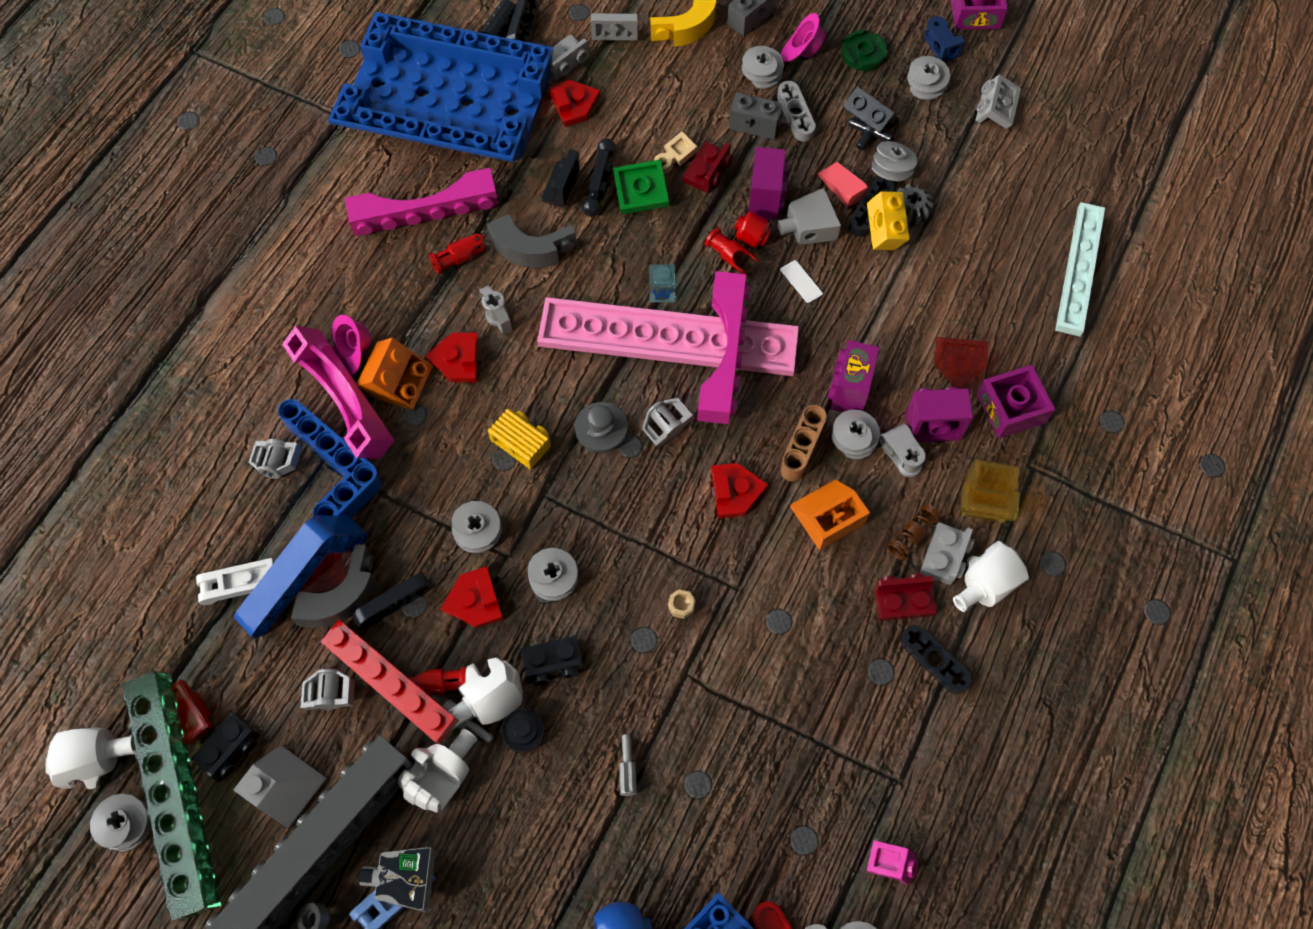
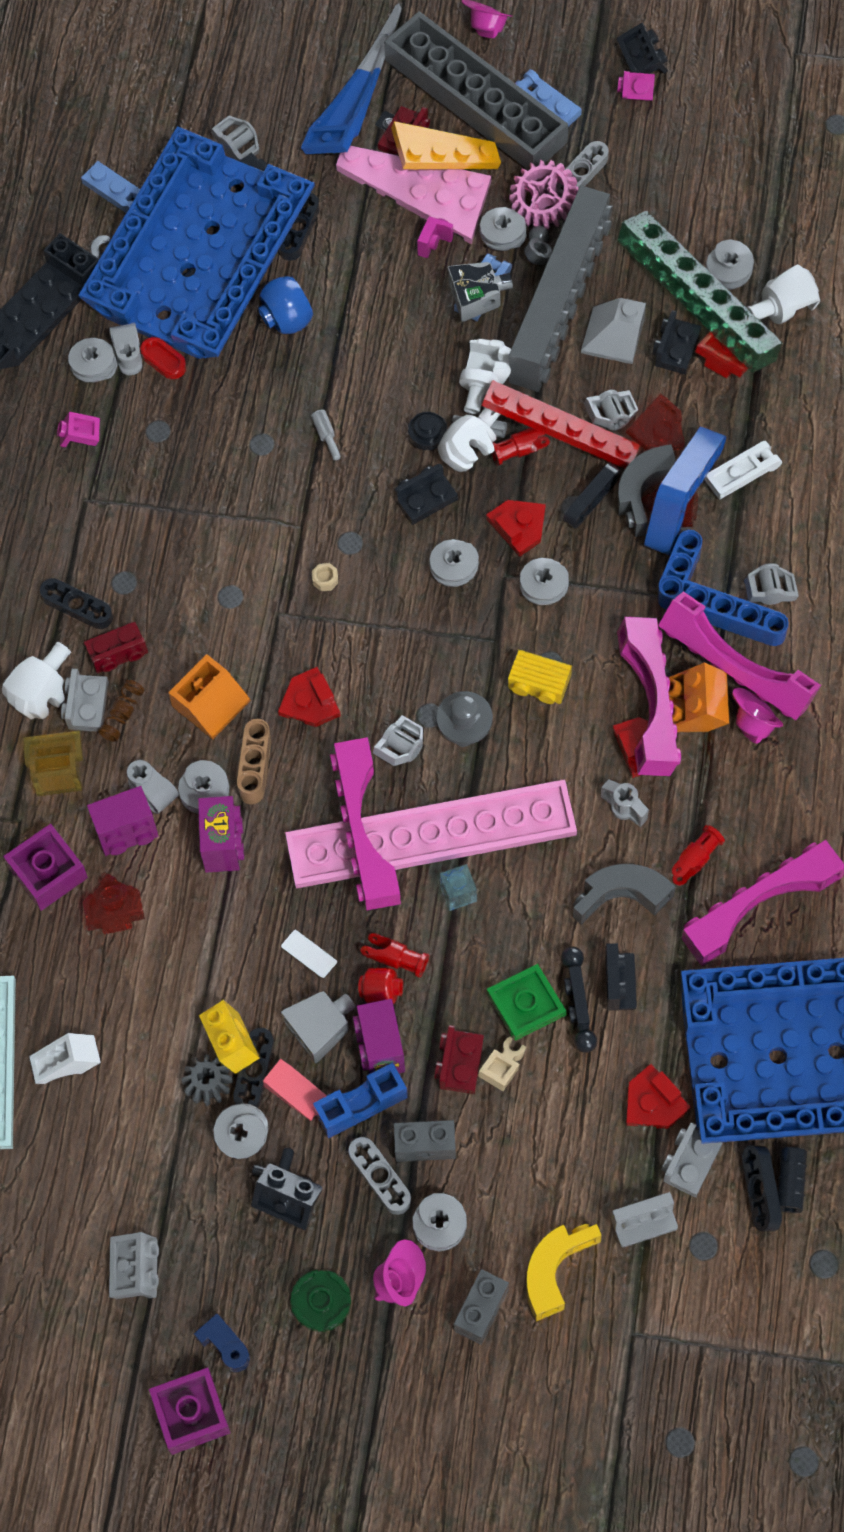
camera: 165 degrees right, 0 degrees up
(293, 655) = (658, 426): none -> clear red plate
(447, 332) = (641, 648): none -> arch
(813, 152) = (347, 1109): none -> blue arch
(928, 77) = (227, 1289): light grey piece -> none
(1024, 249) = (65, 1057): none -> white arch

